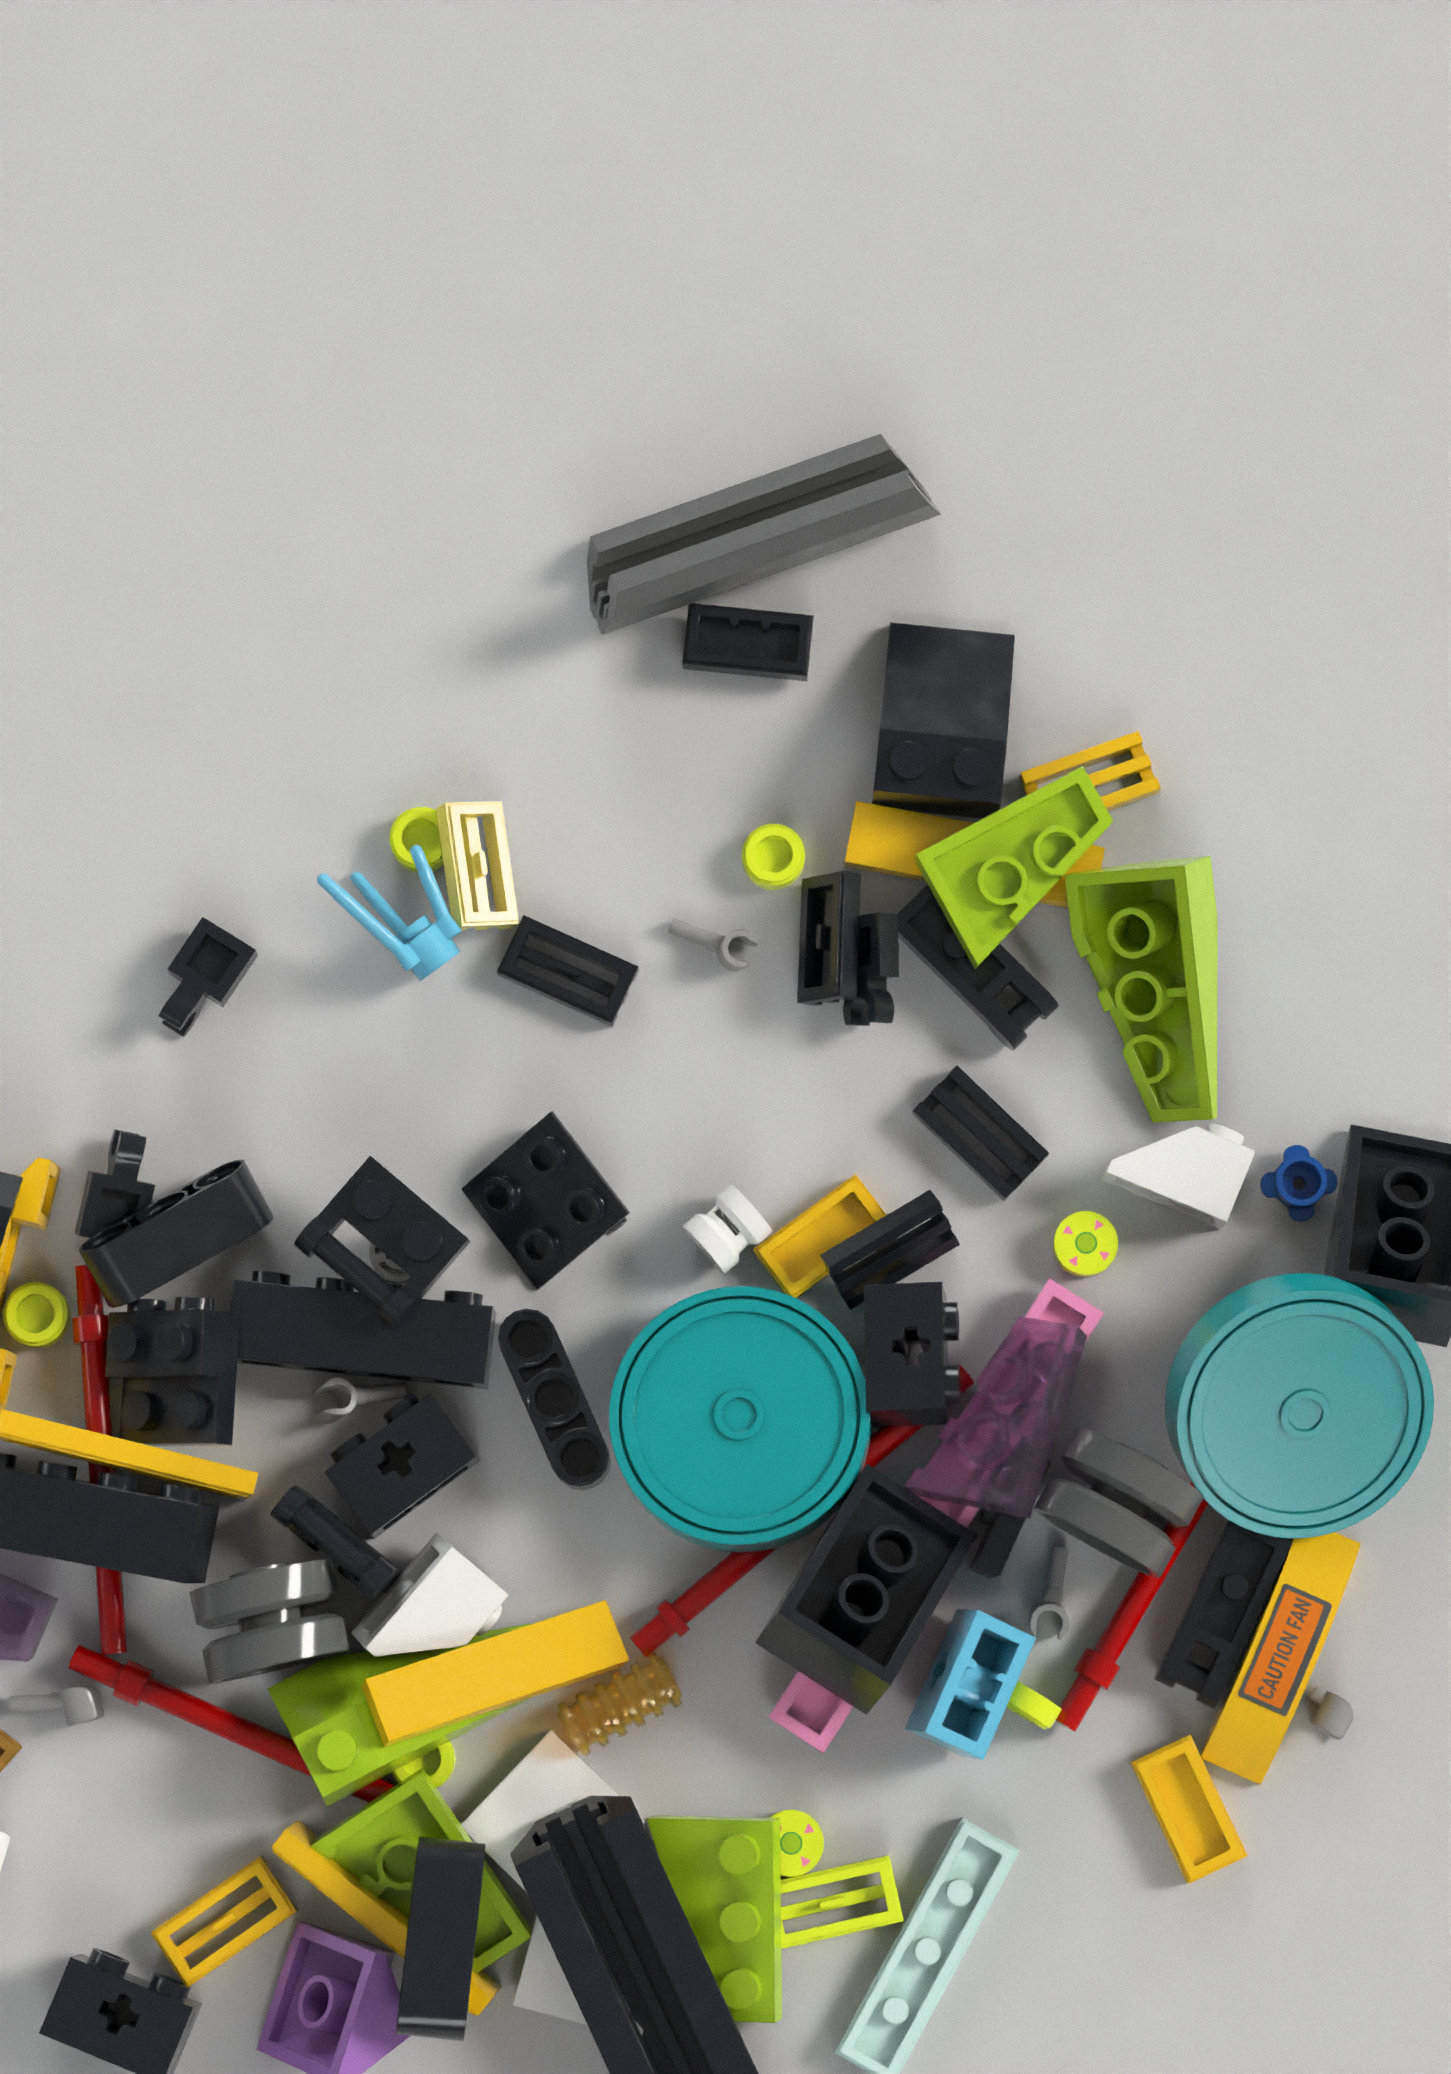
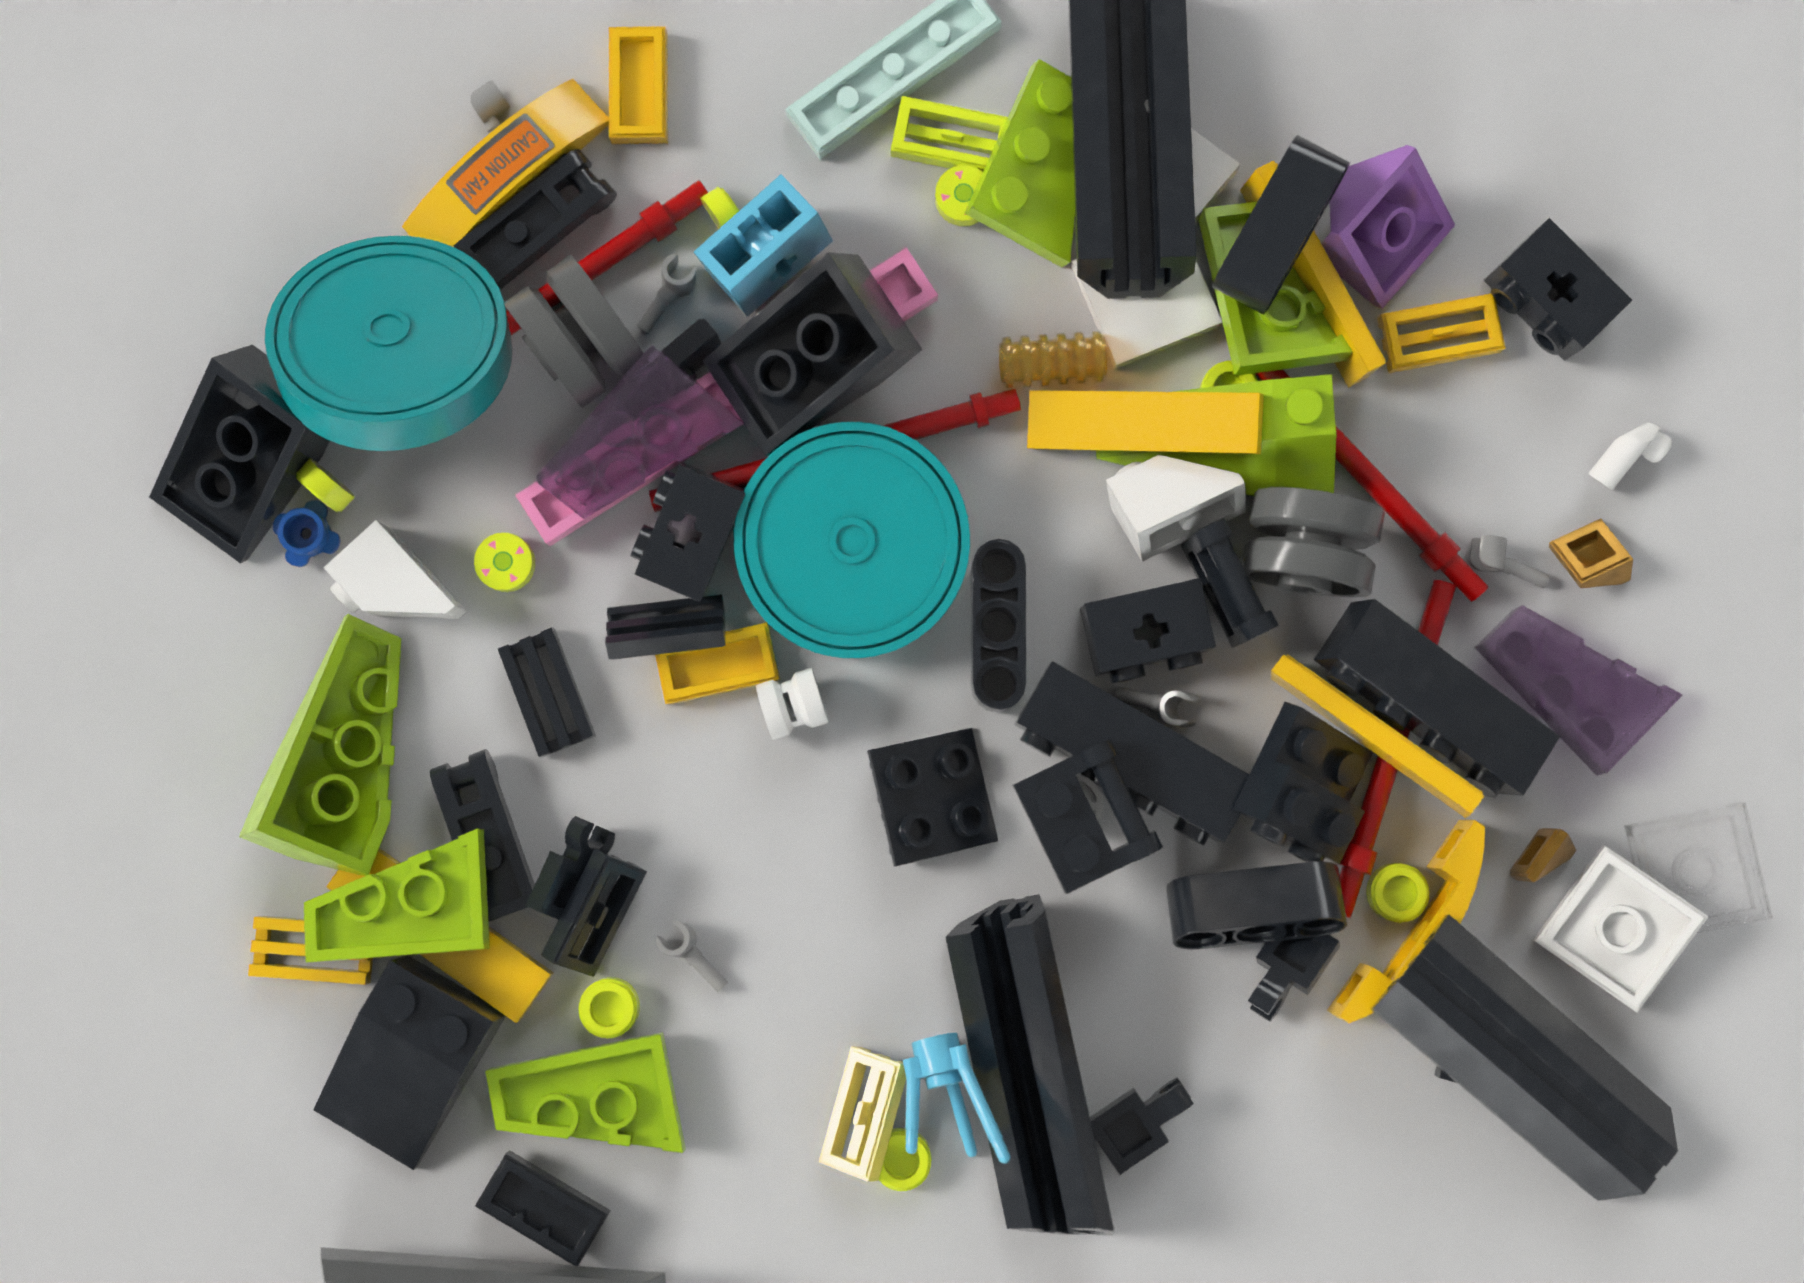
camera: 155 degrees left, 5 degrees up
(338, 980) = (1028, 1069): none -> black piece
(616, 993) = (860, 1024): black tile -> none
(746, 771) = (594, 1093): none -> lime wing
(1301, 1237) = (324, 485): none -> neon yellow tile

